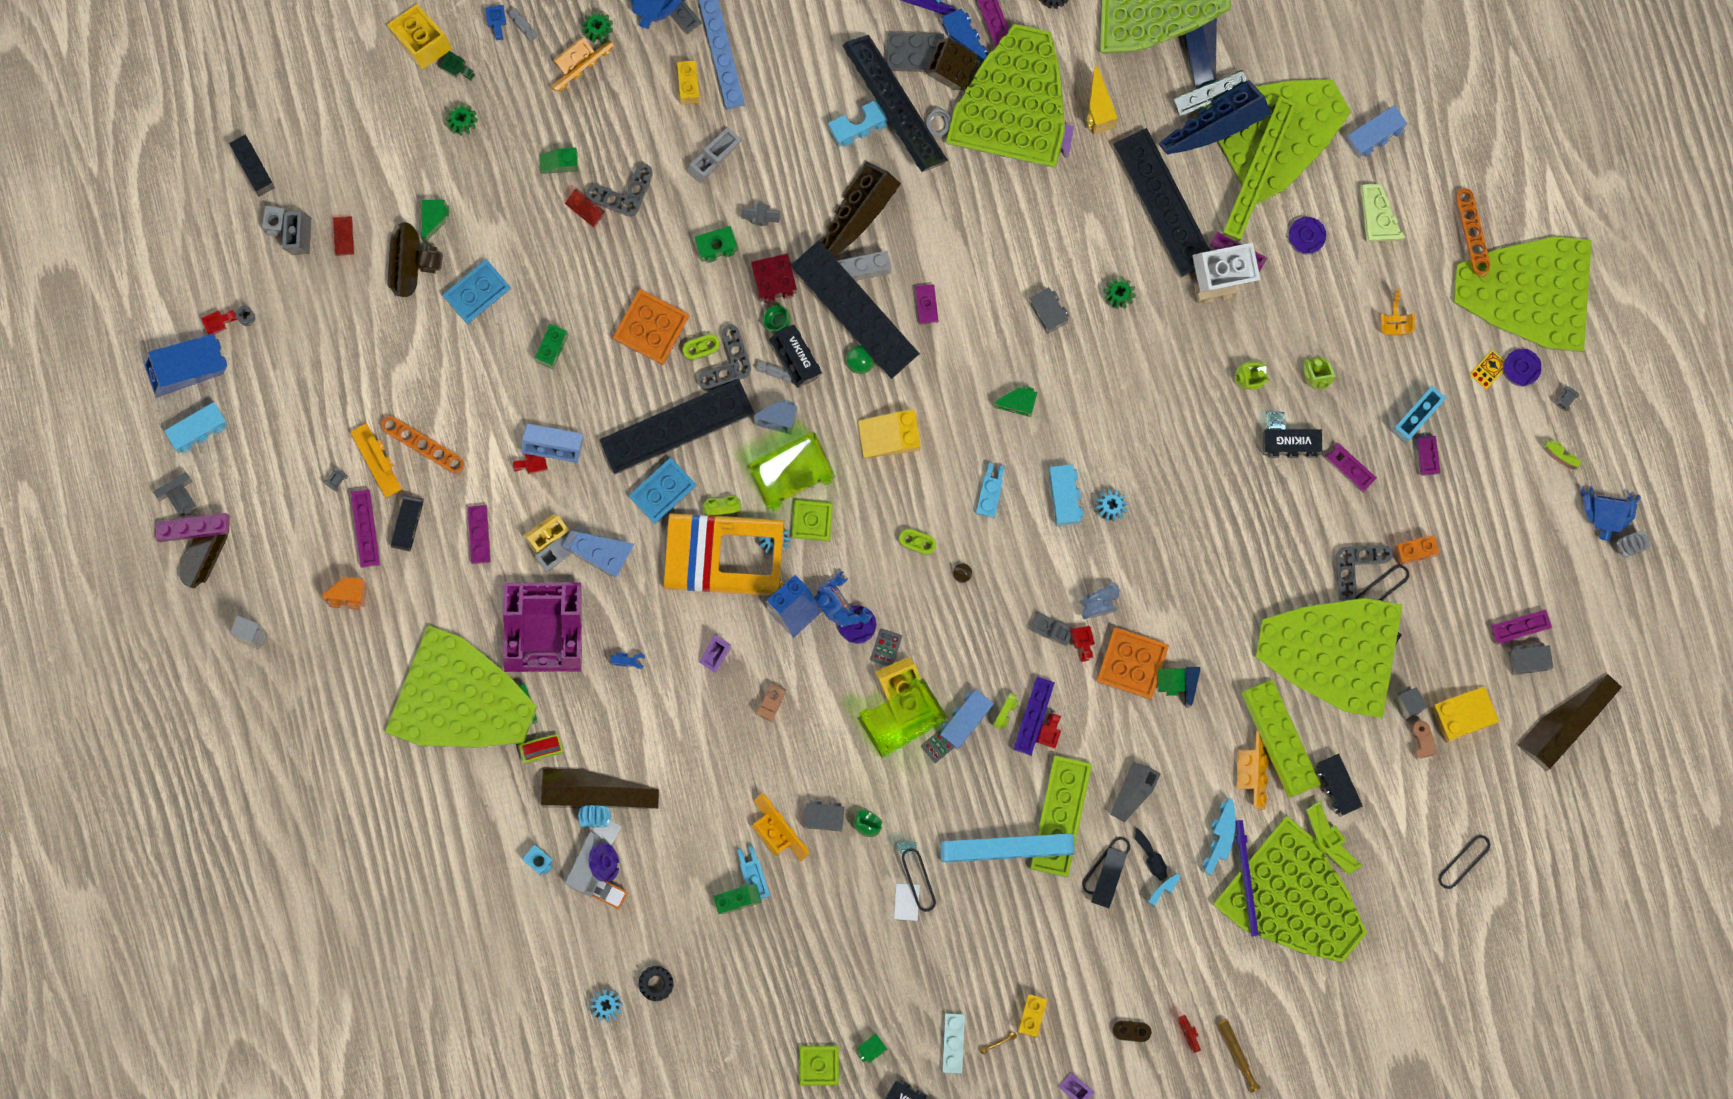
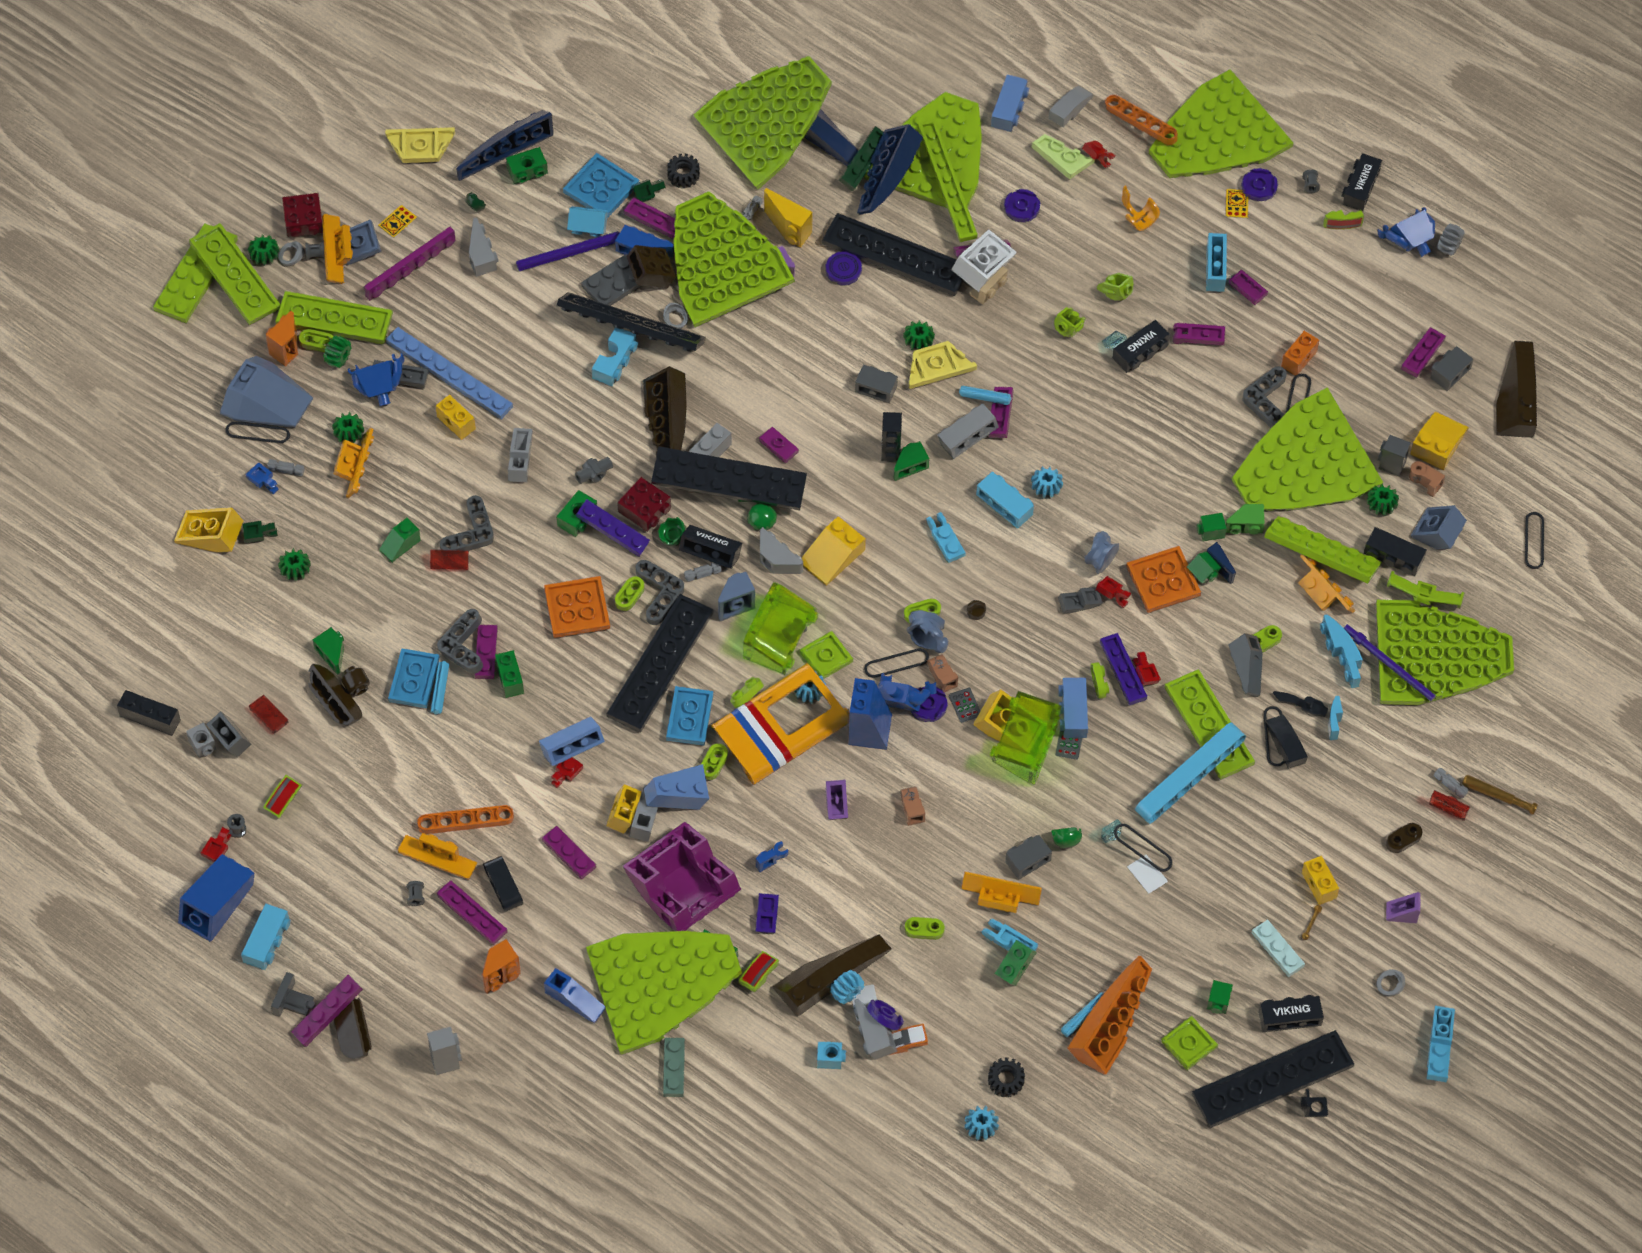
camera: 35 degrees left, 20 degrees down
(299, 317) = (282, 796): none -> slope
(385, 660) = (573, 995): none -> slope
(416, 775) = (674, 1067): none -> sand green plate
(491, 315) = (439, 687): none -> medium azure axle
(532, 285) = (456, 642): none -> dark grey beam
(551, 310) = (486, 650): none -> magenta plate
(587, 705) = (767, 913): none -> dark purple slope
(649, 545) = (714, 763): none -> lime plate
(697, 811) = (924, 928): none -> lime plate
(732, 280) = (612, 528): none -> dark purple plate
(759, 979) = (1076, 1022): none -> medium azure axle
(766, 1002) = (1106, 1025): none -> orange wedge
(842, 403) = (777, 556): none -> light grey slope
(860, 577) = (893, 656): none -> black piece
(888, 608) = (943, 673): none -> nougat leg
(903, 565) = (926, 631): none -> sand blue piece
(1013, 373) = (891, 436): none -> black brick
(1079, 69) = (752, 207): none -> light grey axle
(1084, 411) = (968, 431): none -> light grey brick
(1111, 182) = (843, 268): none -> dark purple tile
(1113, 329) = (938, 363): none -> light yellow wing
(1126, 389) = (986, 395): none -> medium azure axle
(1127, 413) = (1002, 413): none -> magenta plate
(1169, 778) = (1266, 639): none -> lime plate
(1209, 1016) = (1451, 783): none -> light grey axle
(1210, 648) = (1212, 527): none -> green brick
(1245, 664) = (1247, 520): none -> bright green slope
(1364, 726) = (1382, 499): none -> green gear
(1394, 792) = (1439, 527): none -> sand blue slope
(1411, 233) = (1097, 151): none -> red plate
(1426, 172) = (1069, 105): none -> light grey slope
(1608, 431) = (1361, 181): none -> black brick

